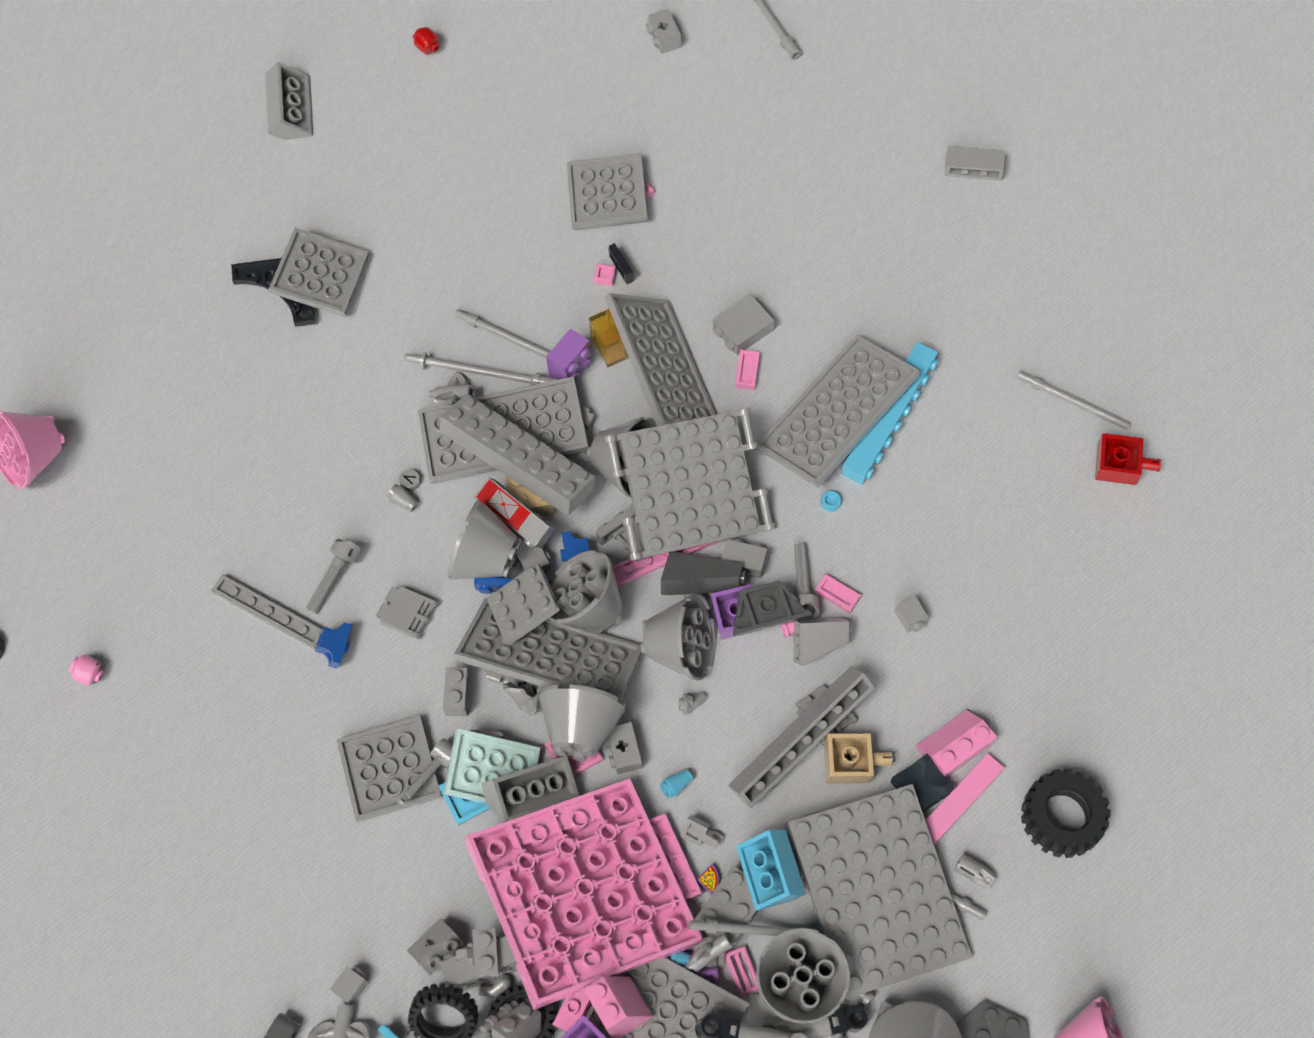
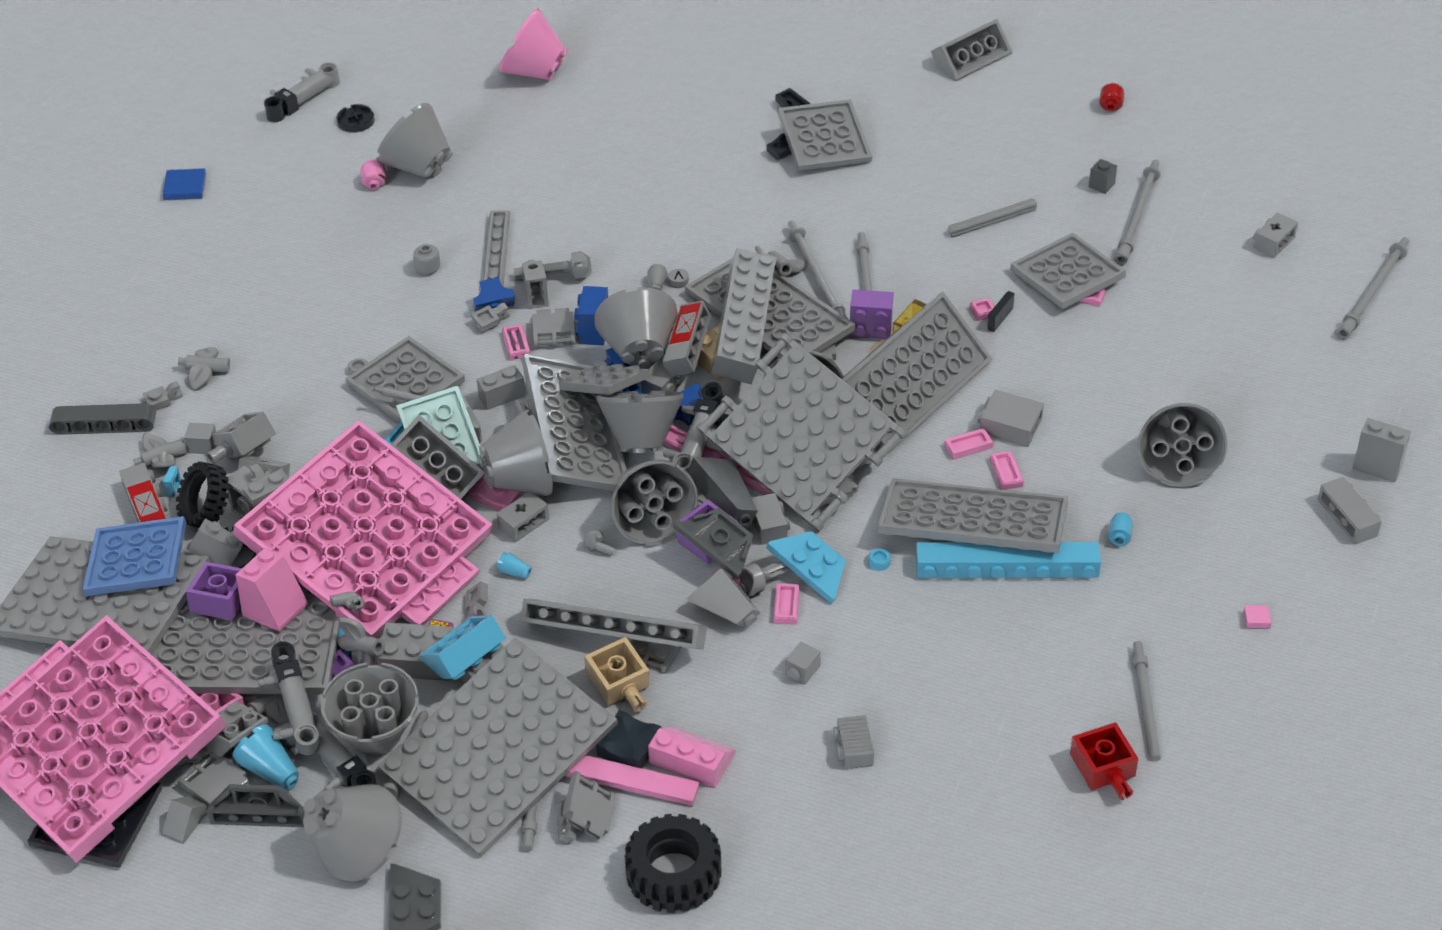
camera: 60 degrees right, 20 degrees down
(89, 611) = (416, 144): none -> light grey cone
(243, 676) = (426, 258): none -> light grey head
(247, 942) = (203, 365): none -> light grey plant
(262, 1004) = (161, 398): none -> light grey plate
(341, 802) = (356, 364): none -> light grey tile
(345, 599) = (535, 276): none -> light grey torso
(355, 661) = (488, 317): none -> light grey plate
(380, 654) = (519, 352): none -> bright pink tile
(381, 948) = (241, 437): none -> light grey brick
(423, 572) = (588, 304): none -> blue brick
(503, 207) = (992, 217): none -> light grey axle
(516, 103) = (1102, 176): none -> dark grey brick
(605, 136) = (1126, 246): none -> light grey bar
(618, 553) = (695, 441): none -> light grey piece
(664, 939) = (348, 599): none -> light grey arm
(712, 926) = (382, 627): light grey bar -> none
(791, 359) = (1006, 470): none -> bright pink tile
(814, 551) = (811, 561): none -> medium azure wing
(857, 226) = (1182, 444): none -> light grey cone
(904, 319) = (1120, 529): none -> medium azure brick
(939, 106) = (1381, 449): none -> light grey brick
(976, 848) = (587, 807): none -> light grey plate
(1009, 619) = (854, 741): none -> light grey brick
(1035, 283) = (1257, 616): none -> bright pink tile

